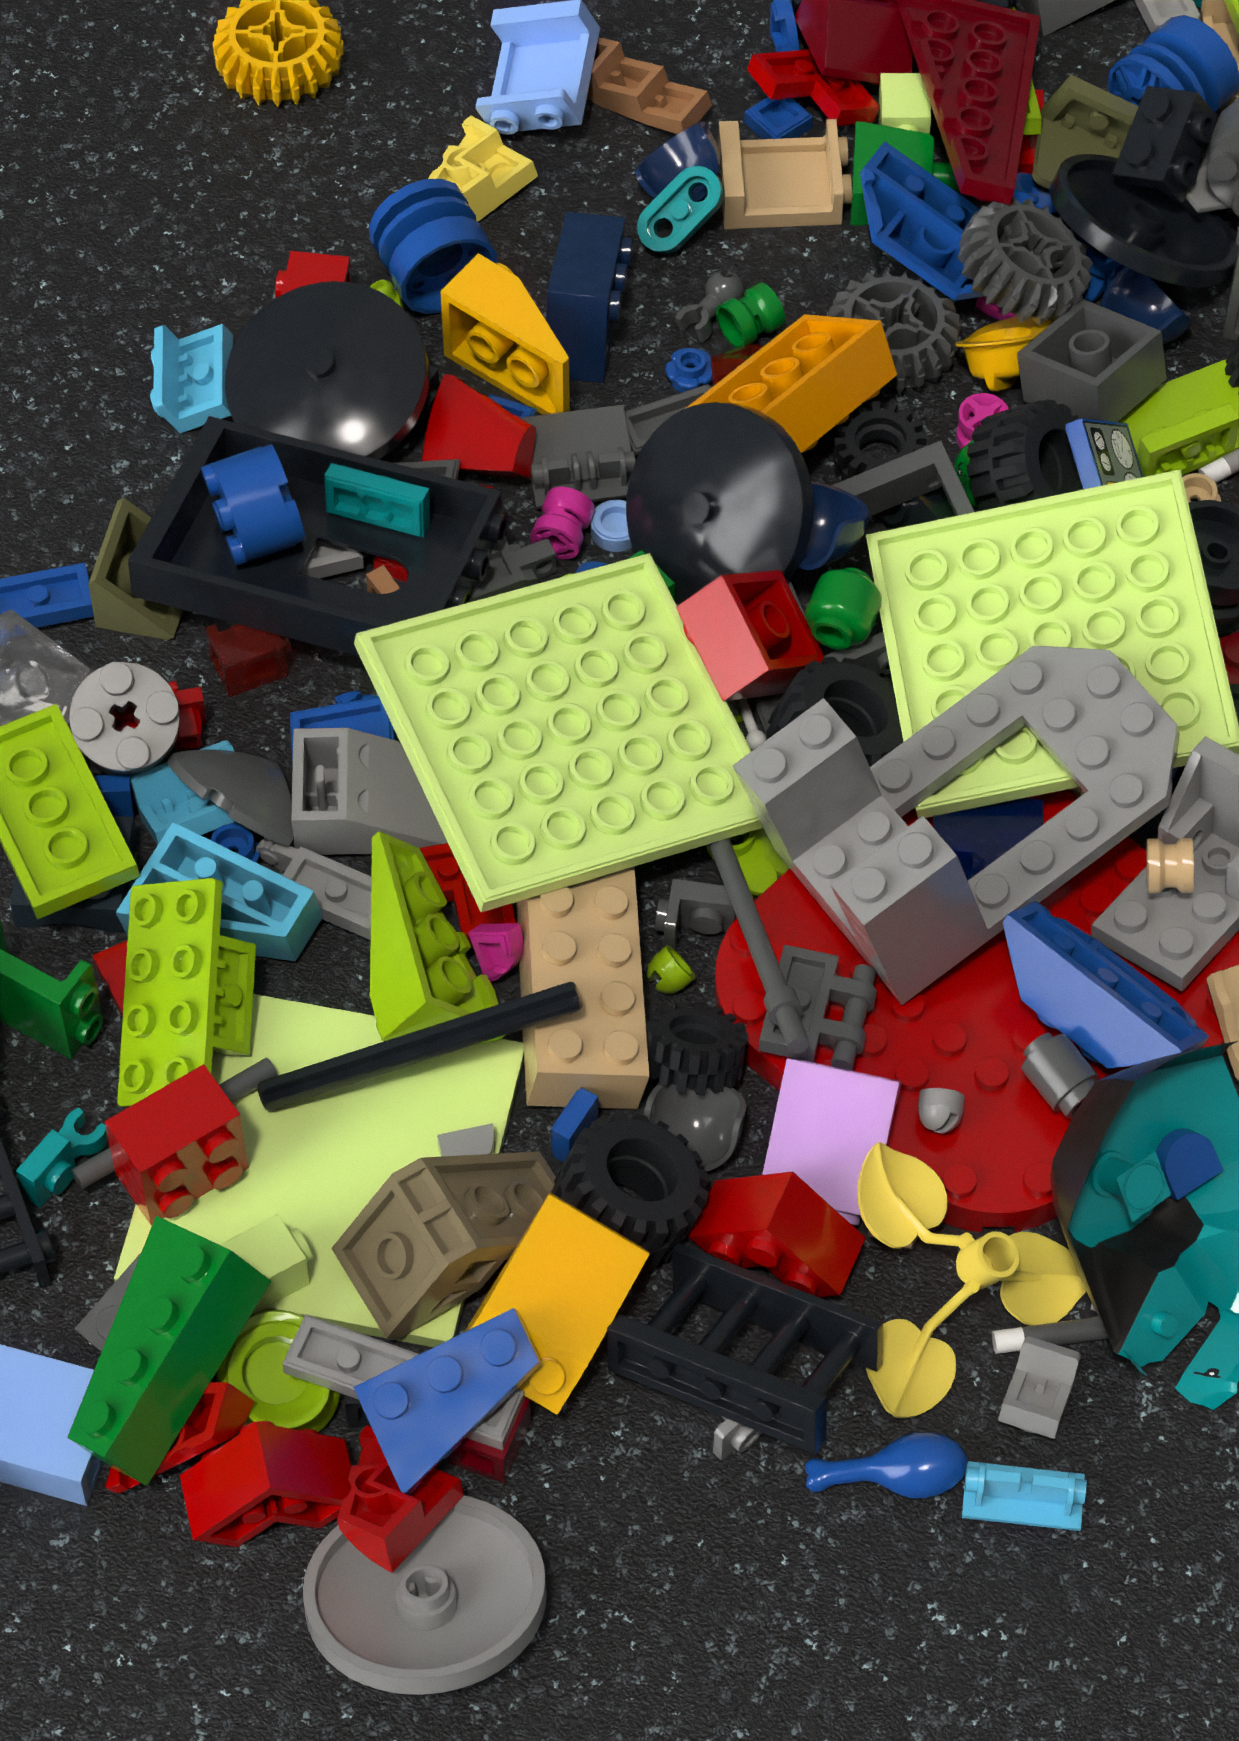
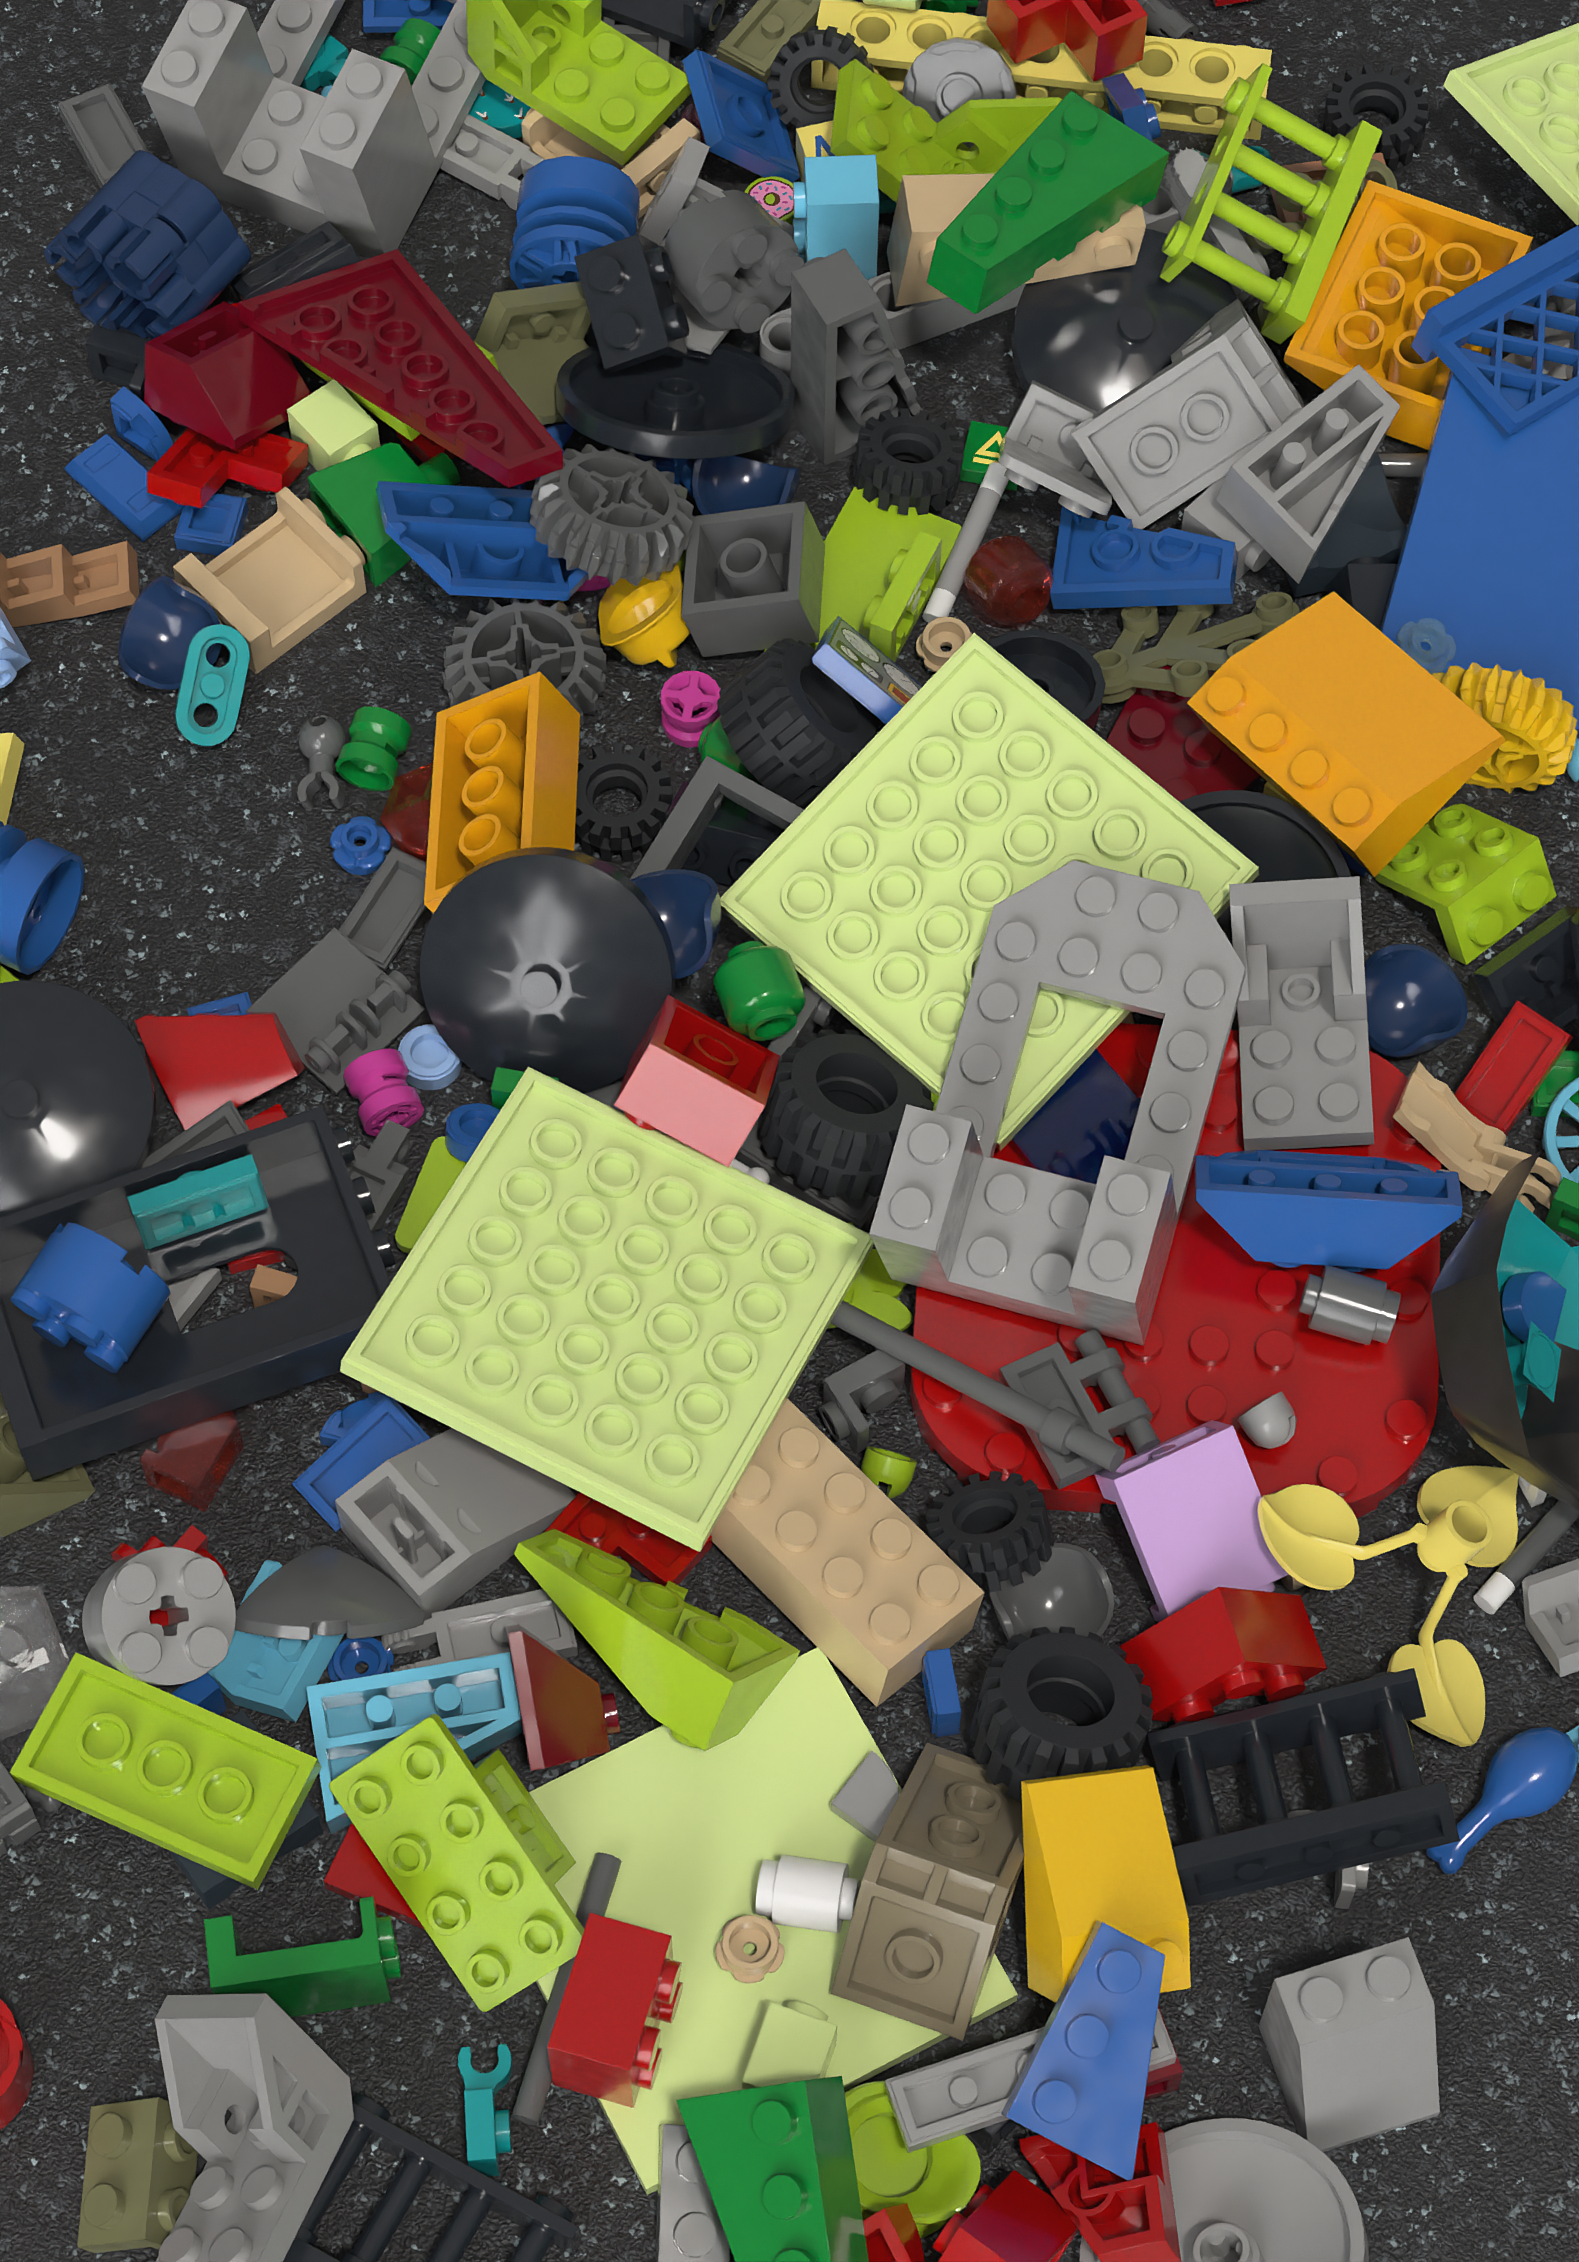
camera: 40 degrees left, 5 degrees up
(306, 1169) = (745, 1931): none -> tan plate
(317, 941) = (558, 1704): none -> slope
(361, 1167) = (806, 1893): none -> white brick
(420, 1046) = (750, 1731): black axle -> none
(497, 947) = (716, 1572): dark pink tile -> none
(503, 337) = (170, 939): yellow slope -> none
(588, 290) = (197, 835): dark blue wedge -> none
(628, 1529) = (1354, 2045): none -> light grey slope
(736, 48) = (121, 487): none -> blue tile
(1170, 865) = (1279, 1031): tan wheel -> none

